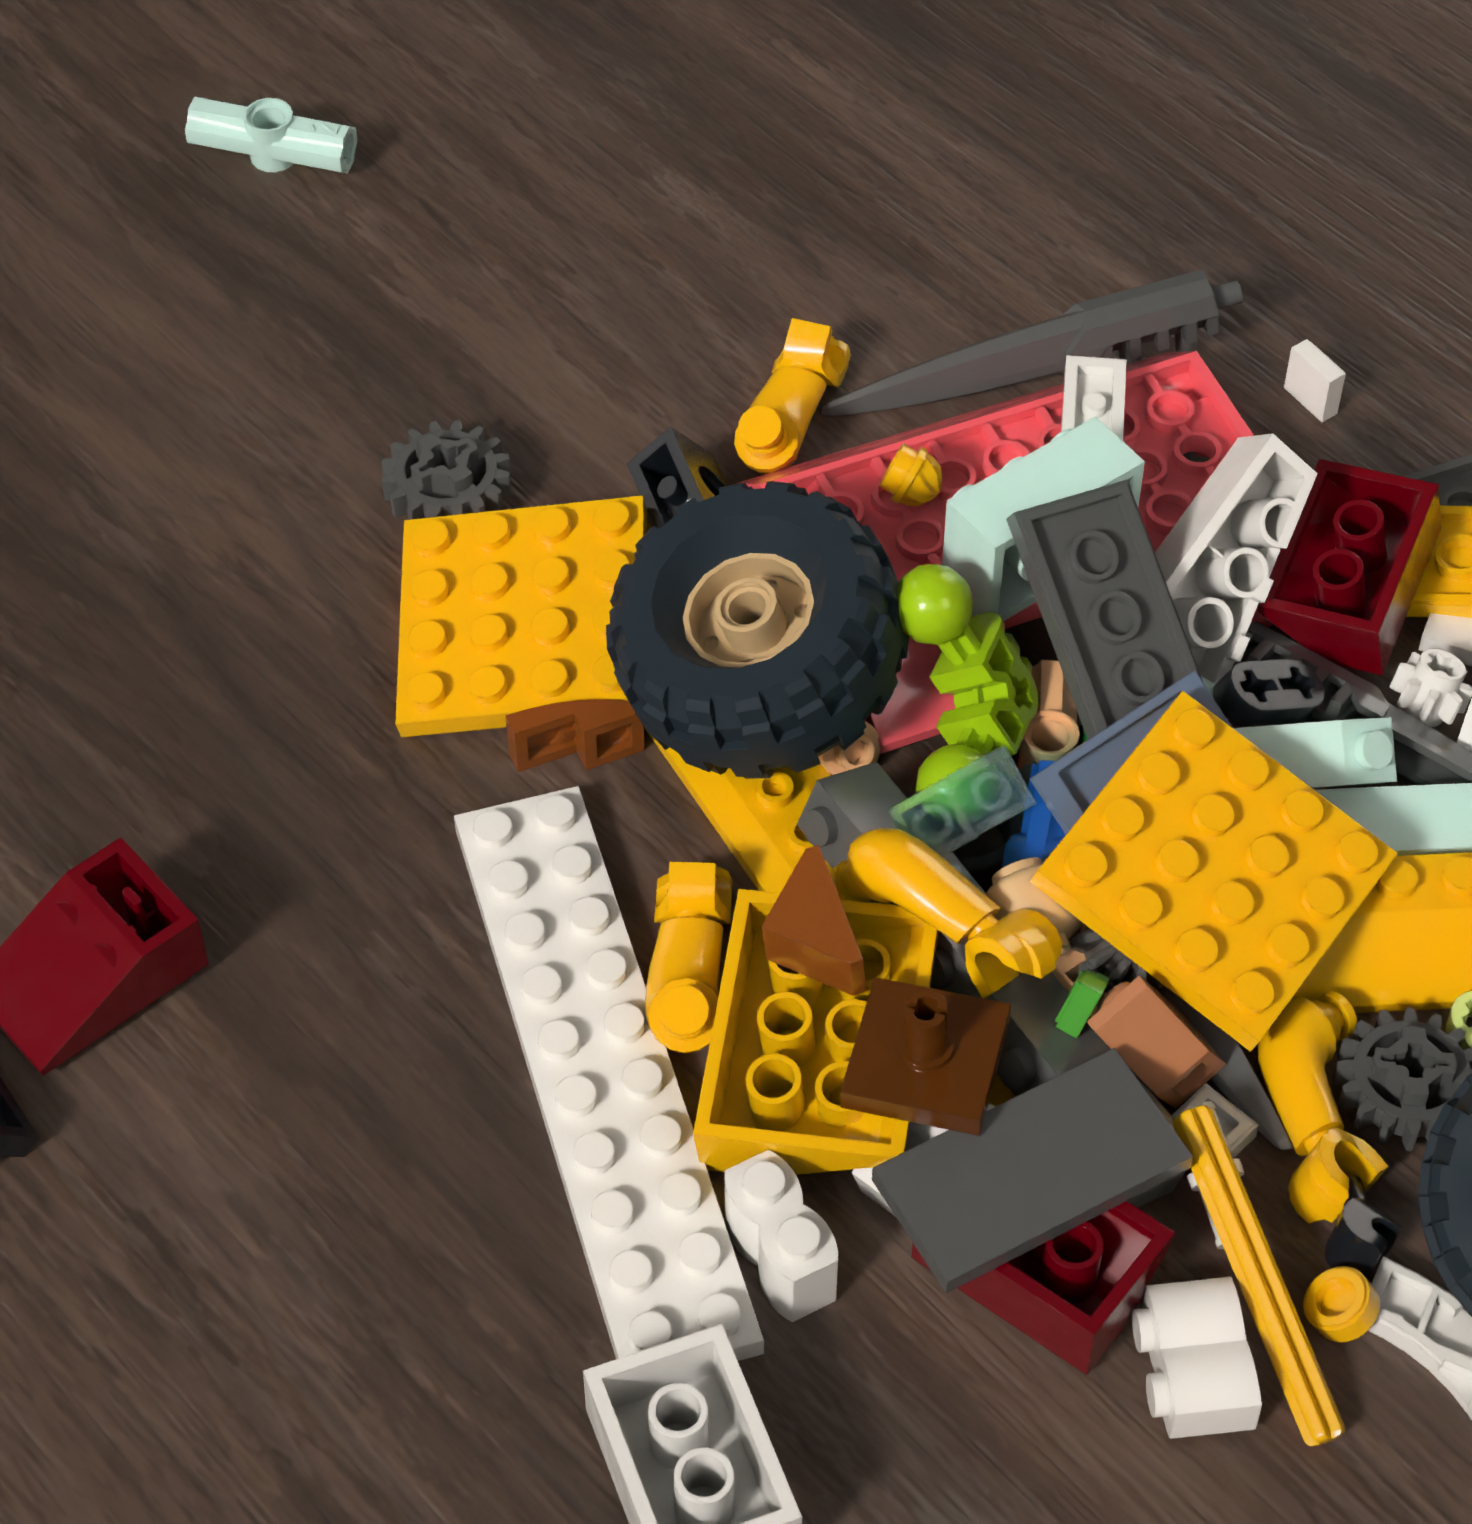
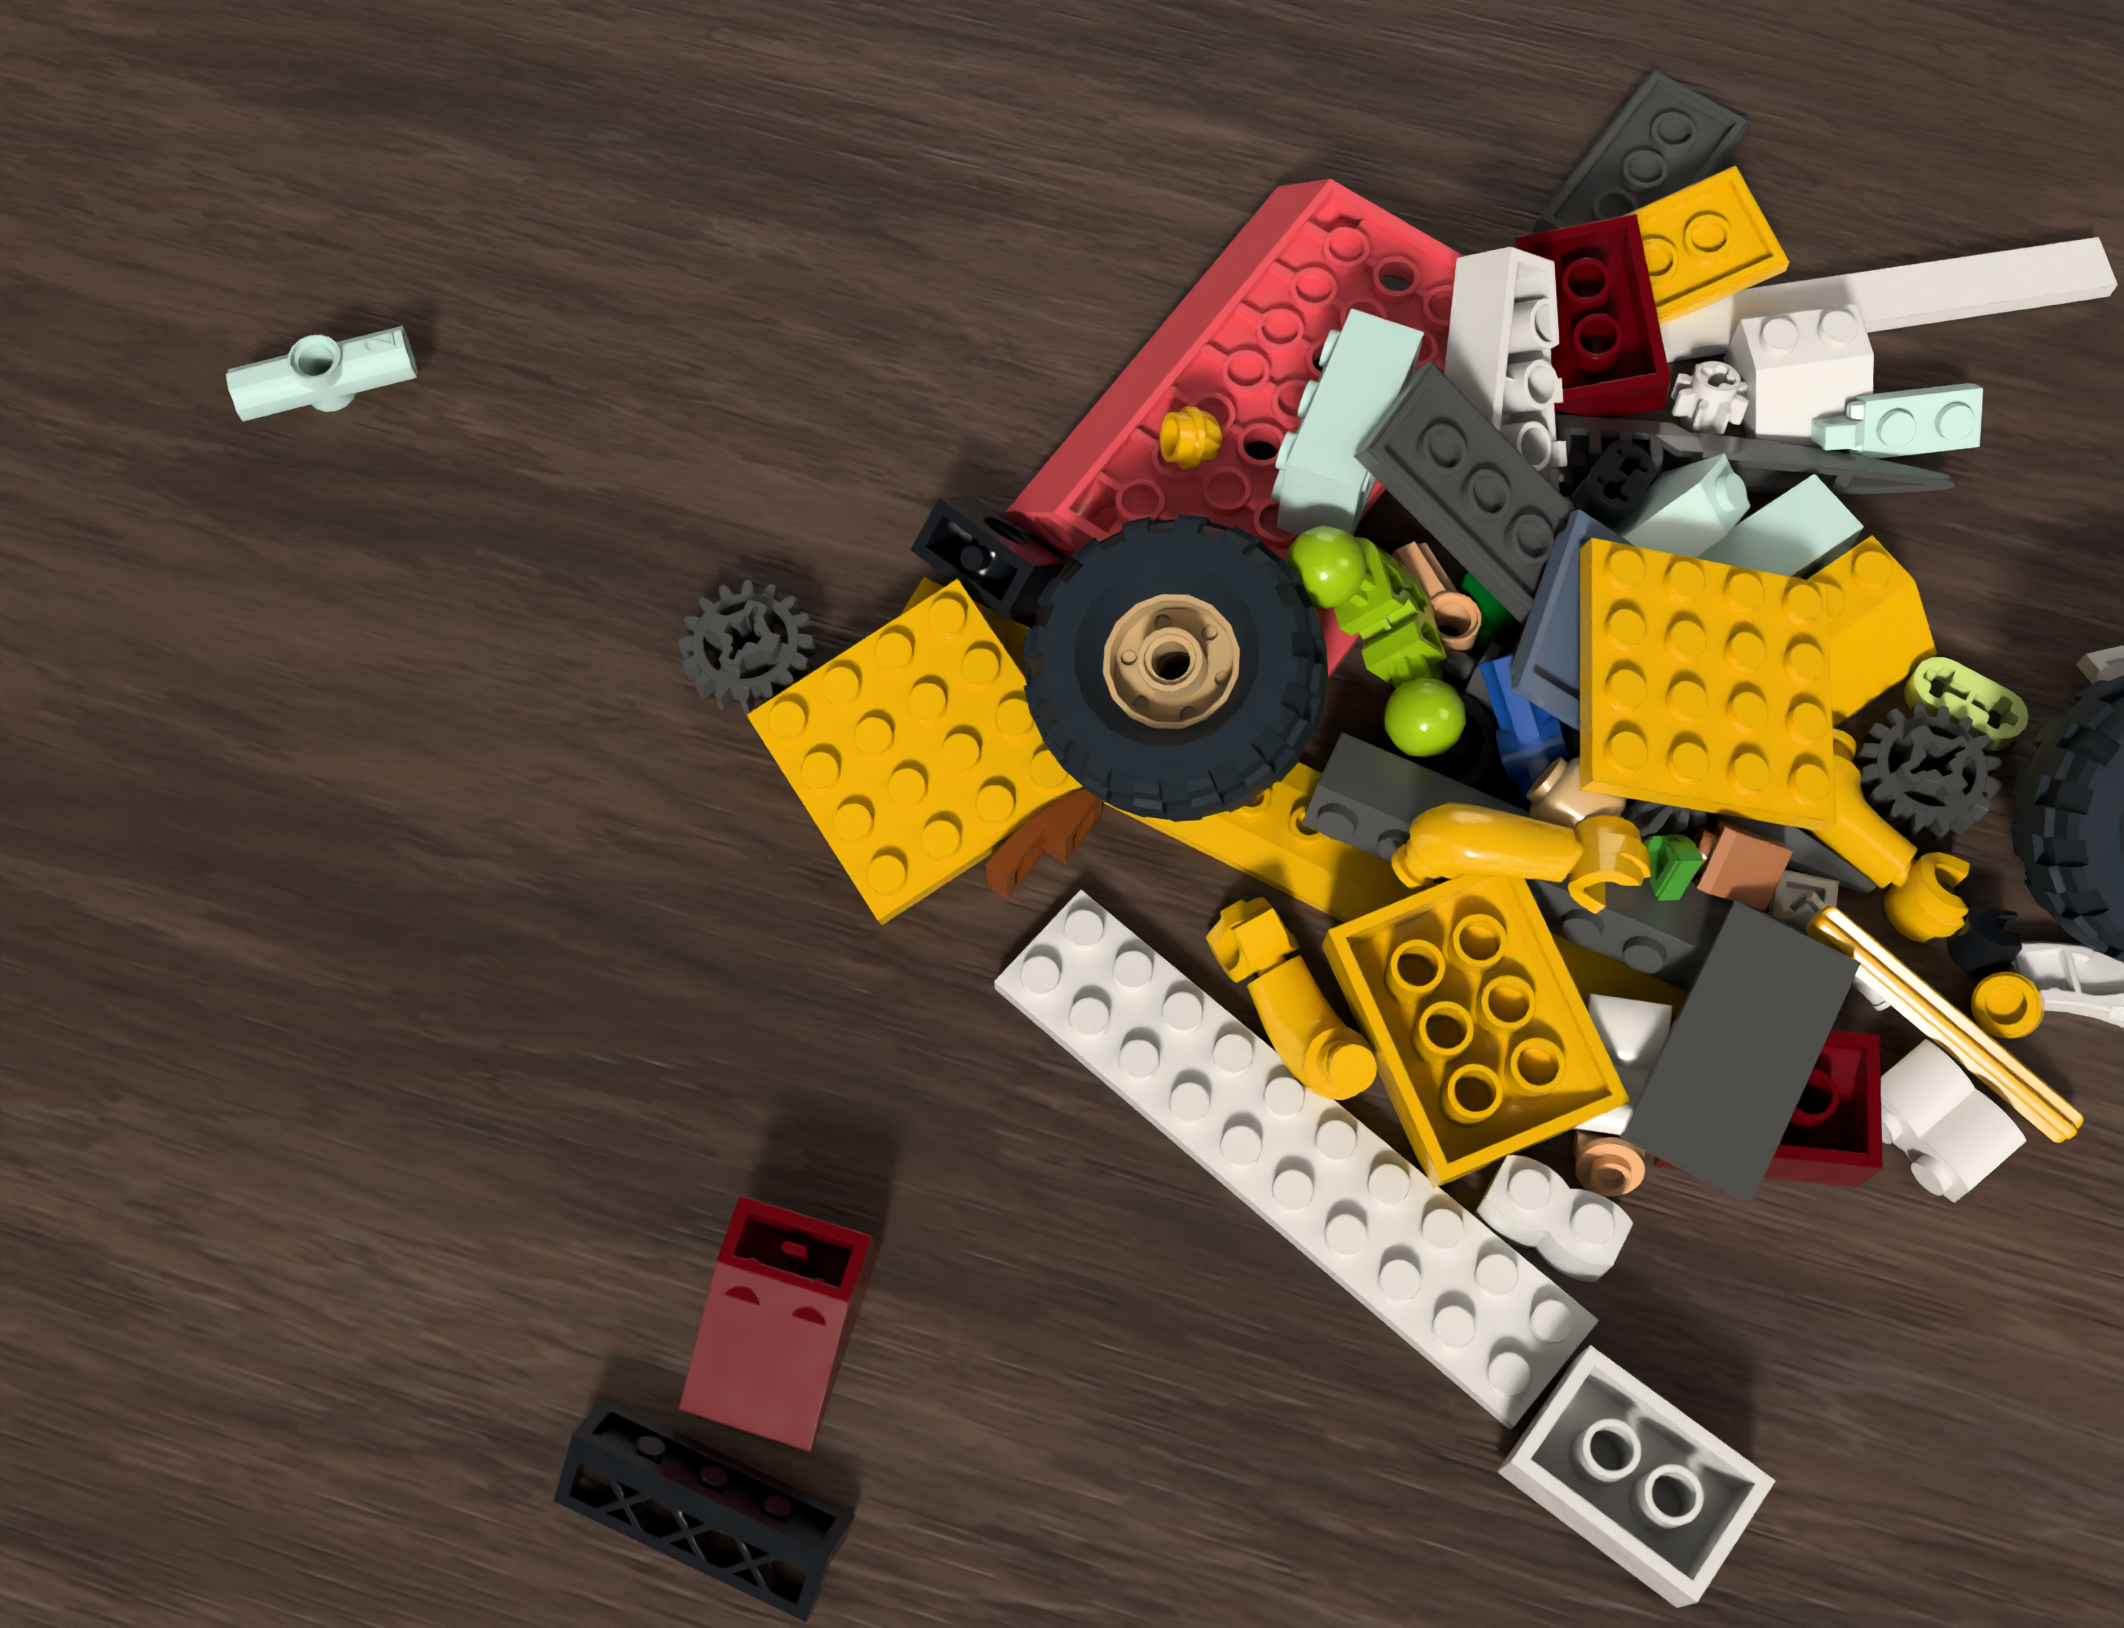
camera: 30 degrees left, 15 degrees up
(780, 415) = (994, 405): yellow piece -> none
(810, 928) = (1434, 937): dark orange slope -> none
(869, 1229) = (1607, 1163): none -> light nougat plate
(926, 1056) = (1600, 1001): reddish brown tile -> none
(964, 802) = (1458, 738): clear light blue slope -> none
(1040, 349) = (1203, 221): dark grey piece -> none
(1094, 389) = (1295, 286): white plate -> none
(1314, 380) = (1421, 150): white tile -> none

